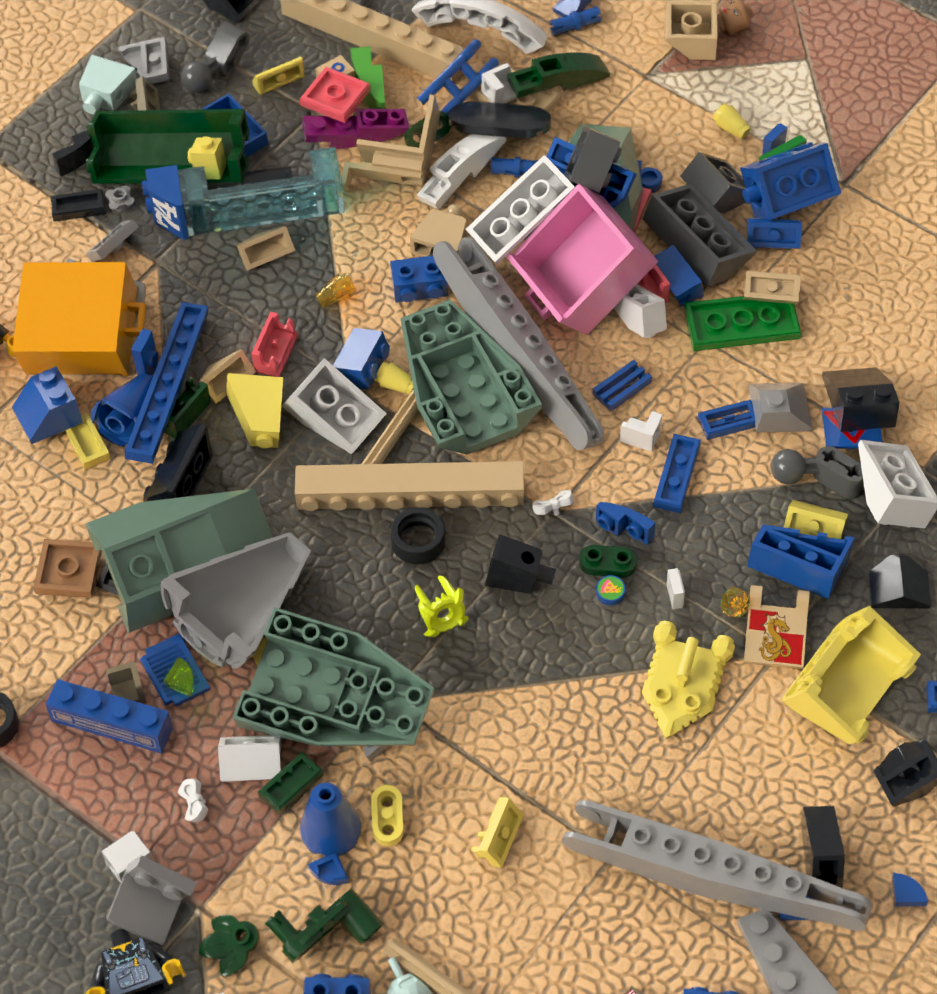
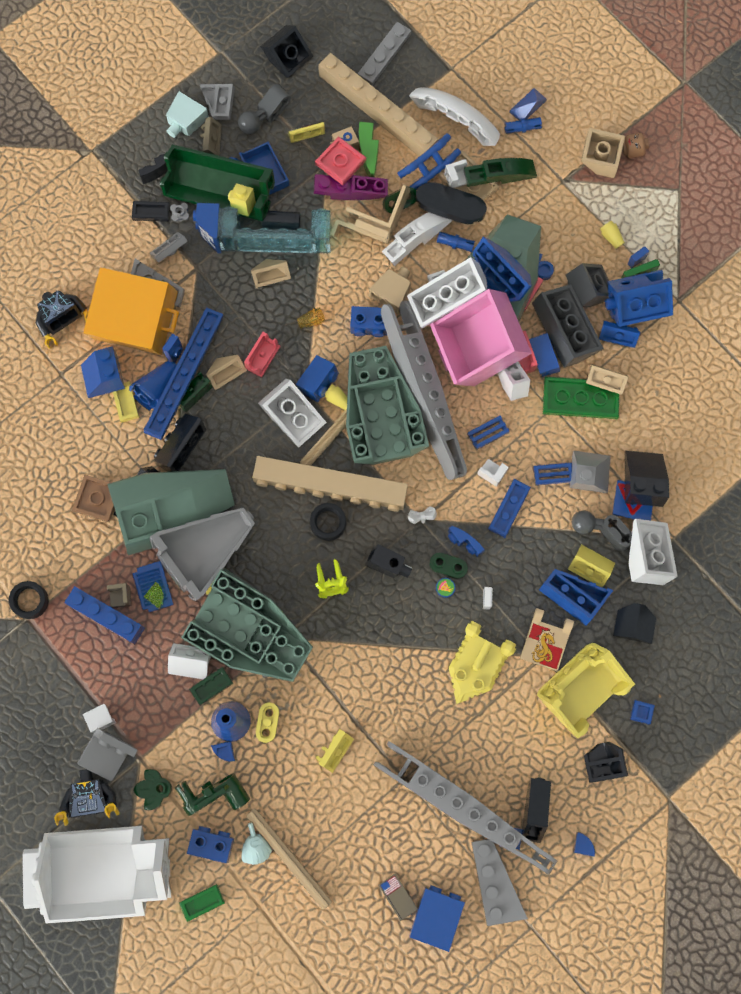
camera: 10 degrees right, 20 degrees up
(196, 810) = (147, 678): white piece -> none
(257, 407) = (242, 402): light yellow slope -> none
(592, 159) = (503, 267): dark grey slope -> none
(735, 602) = (524, 616): clear yellow tile -> none

